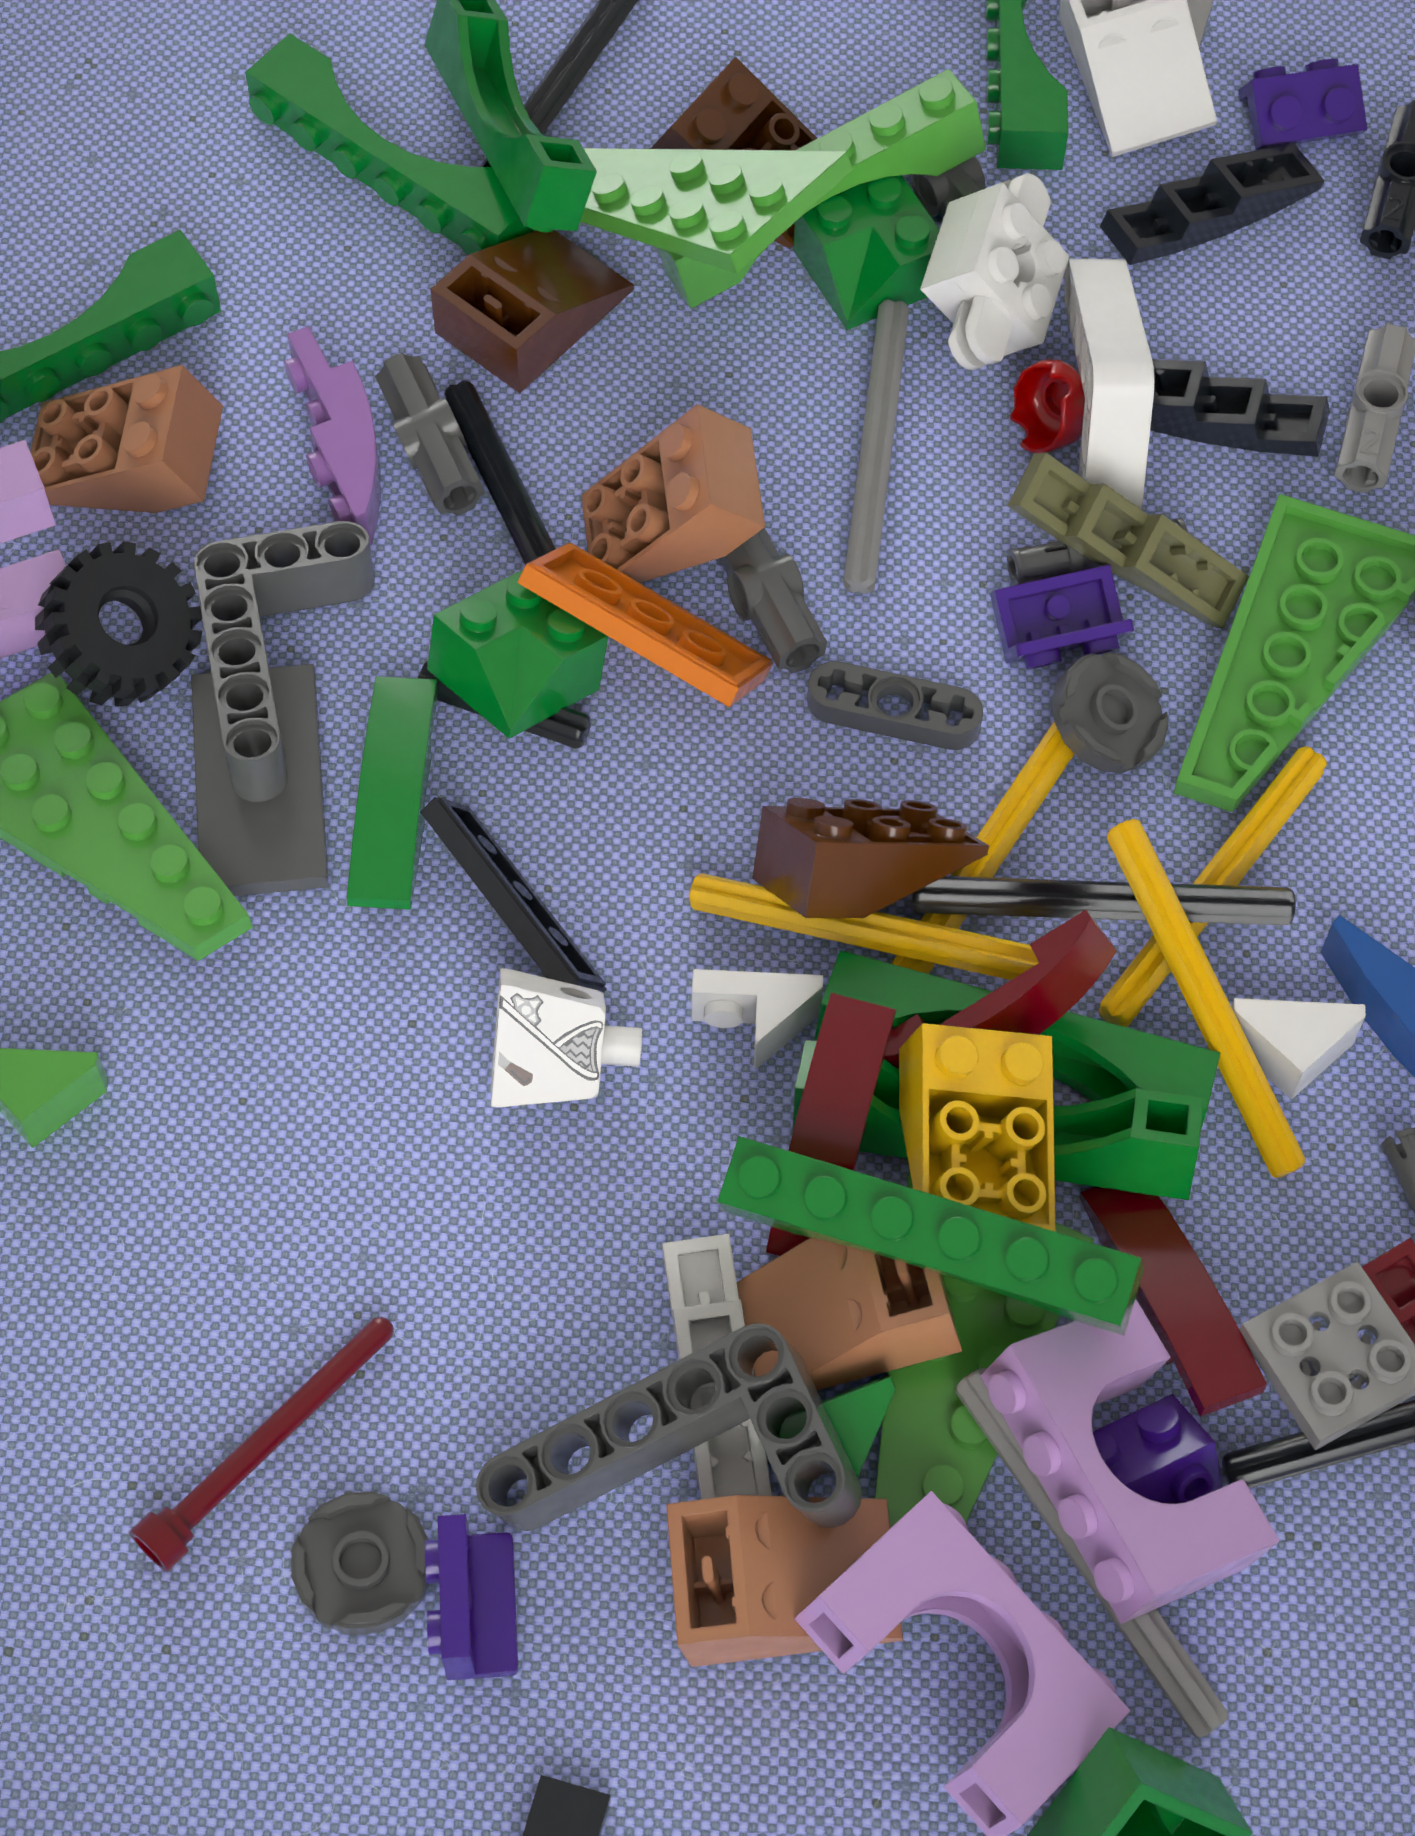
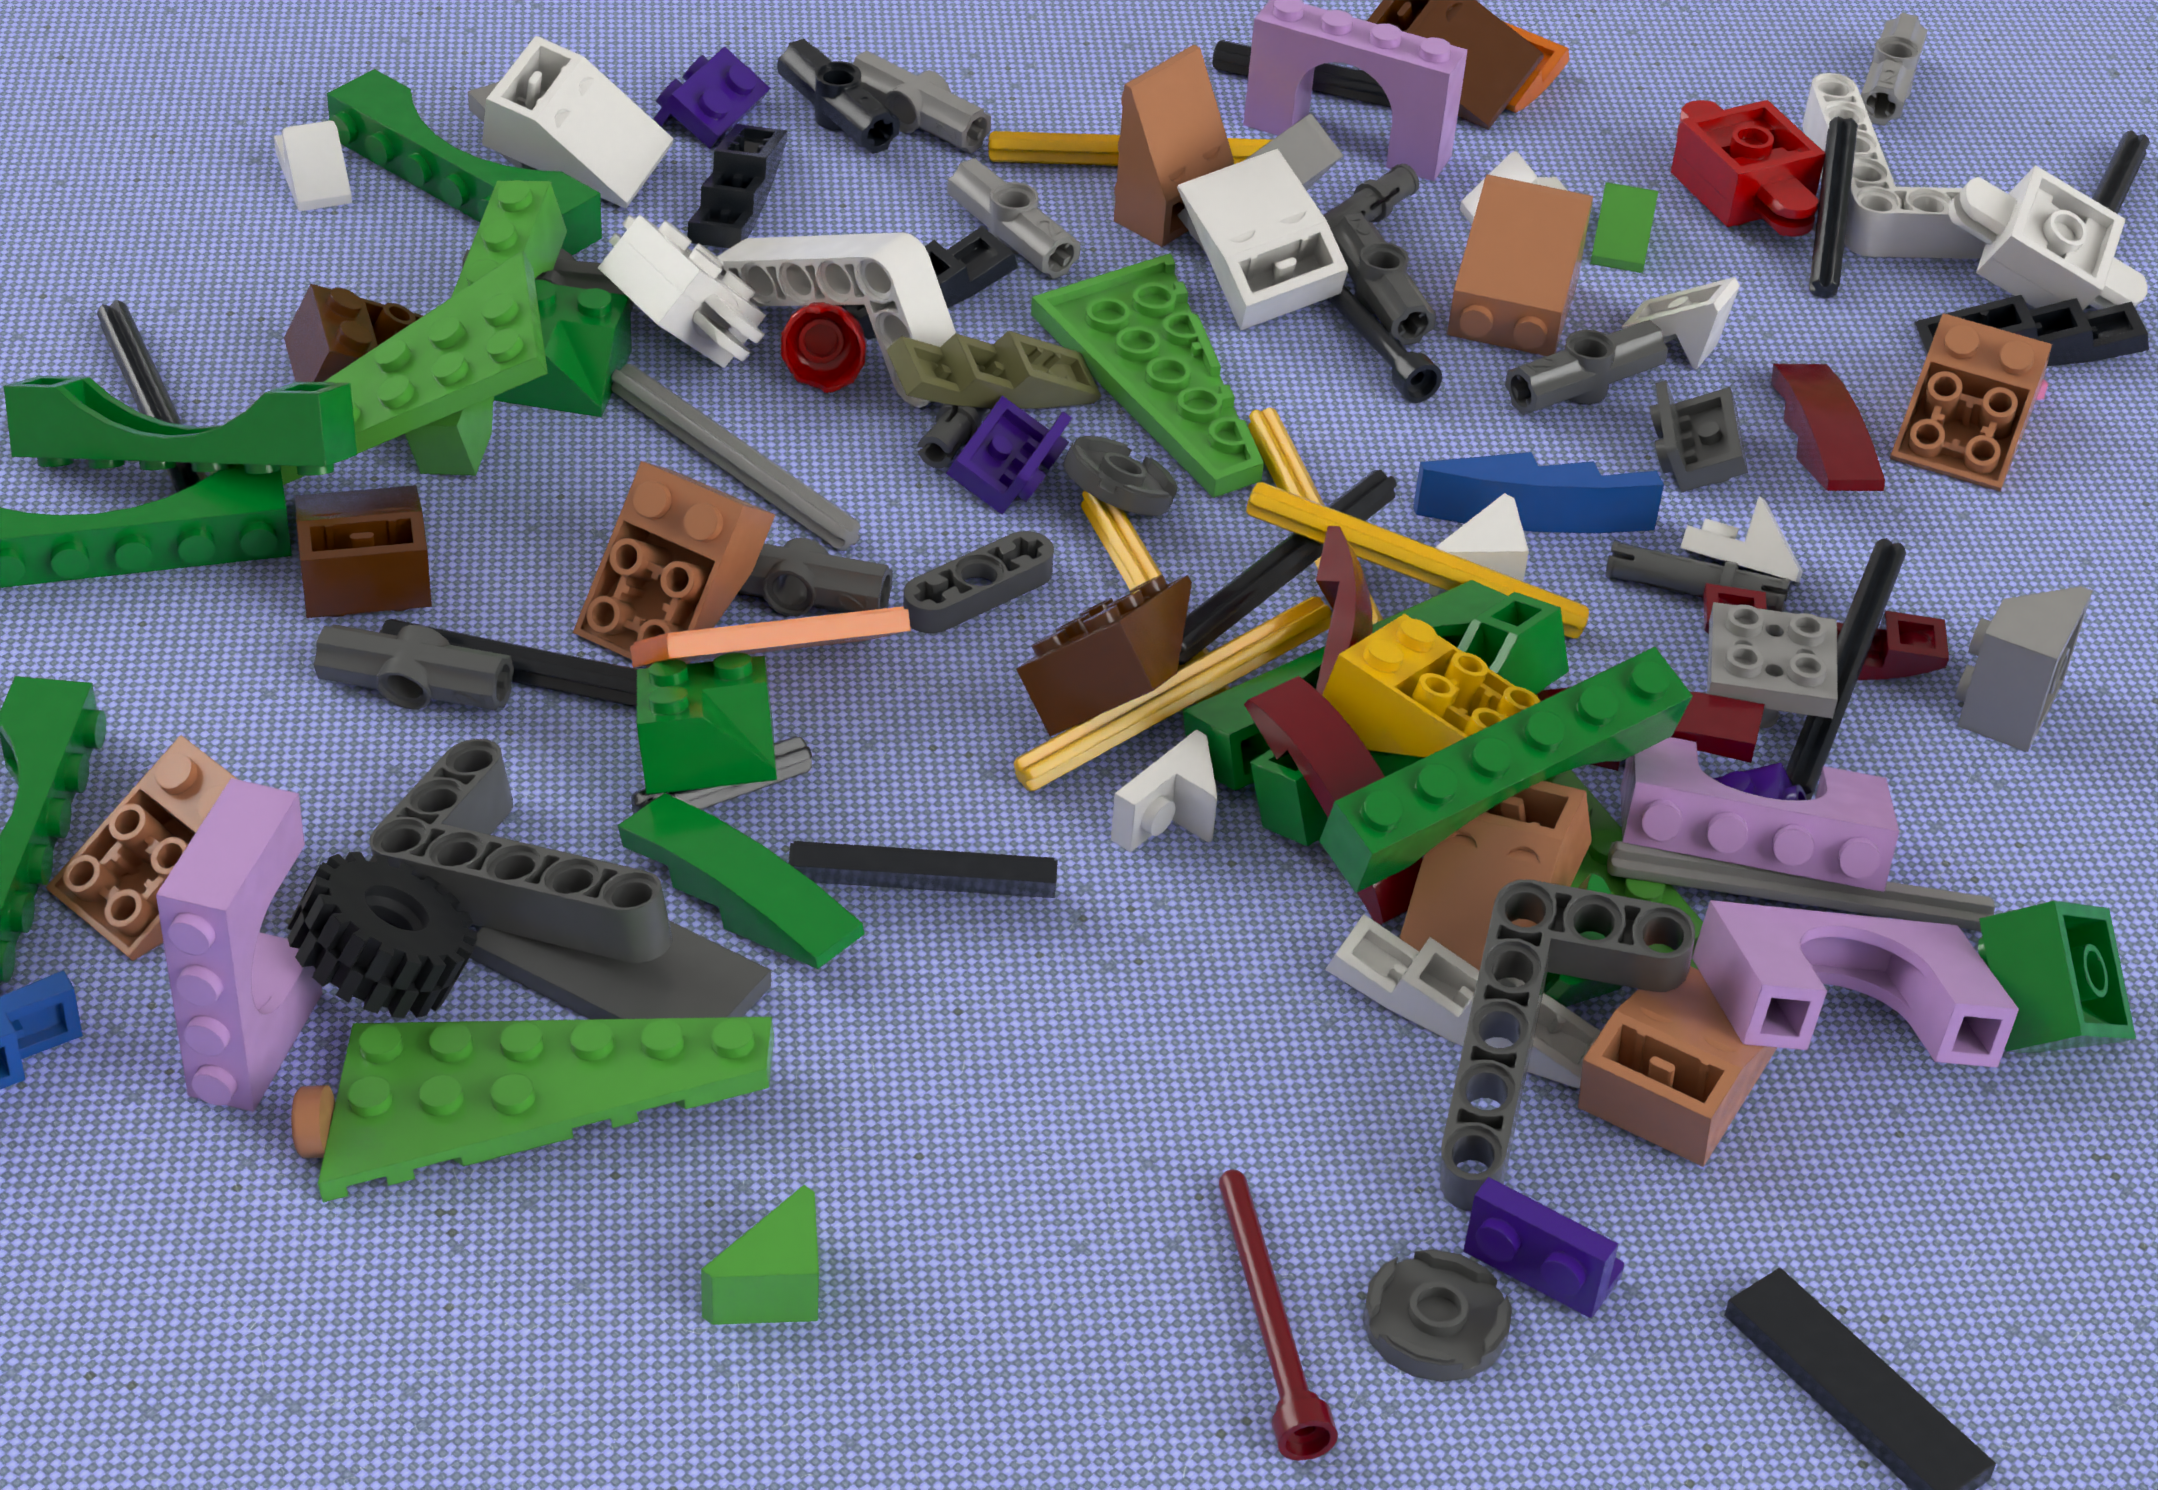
camera: 55 degrees left, 20 degrees down
(340, 431) = (327, 702): medium lavender slope -> none
(553, 1041) = (1090, 912): white torso -> none

